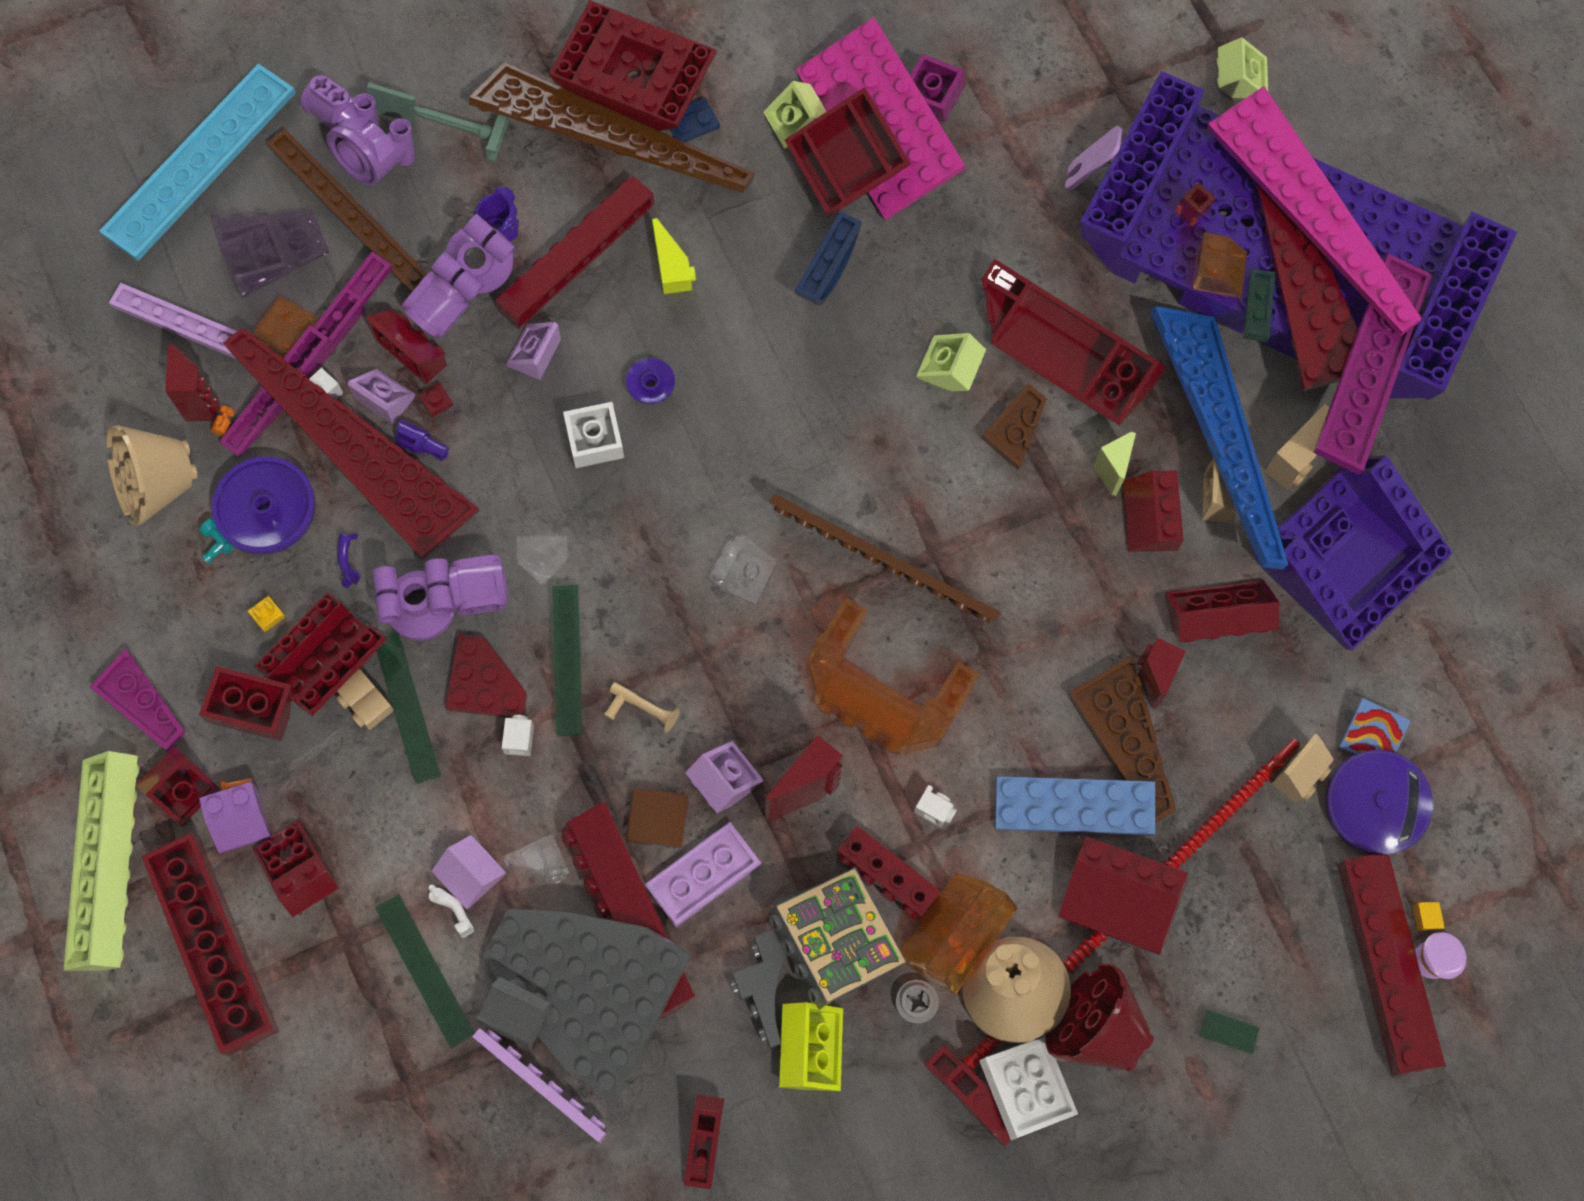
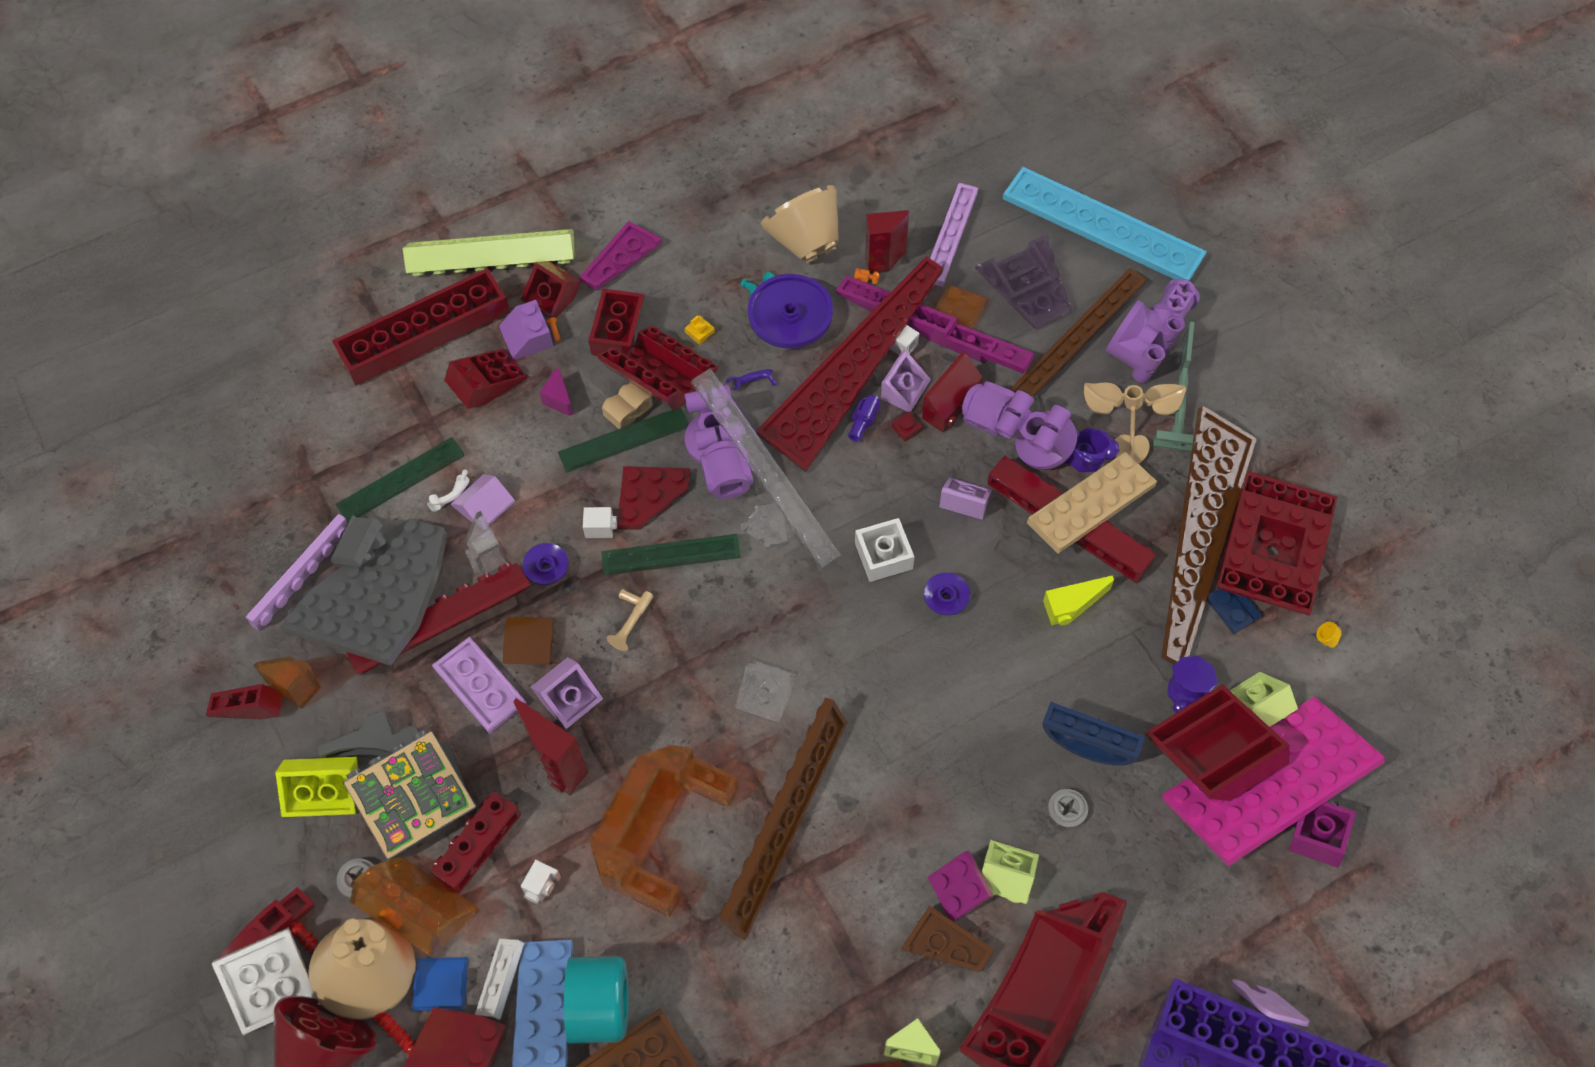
camera: 90 degrees right, 10 degrees down
(335, 780) = (555, 394): none -> magenta slope
(444, 139) = (1164, 400): none -> tan plant
(484, 540) = (765, 468): none -> clear plate
(562, 784) = (541, 556): none -> dark purple dish
(566, 223) = (1091, 502): none -> tan plate
(685, 1081) = (290, 678): none -> clear orange slope
(732, 43) = (1329, 634): none -> yellow tile
(776, 170) = (1190, 681): none -> dark purple piece
(890, 292) = (1065, 797): none -> light grey gear
(966, 404) = (960, 886): none -> magenta plate
(1032, 848) = (499, 979): none -> white plate
(1035, 913) = (440, 984): none -> blue piece
(1067, 743) = (596, 999): none -> teal piece

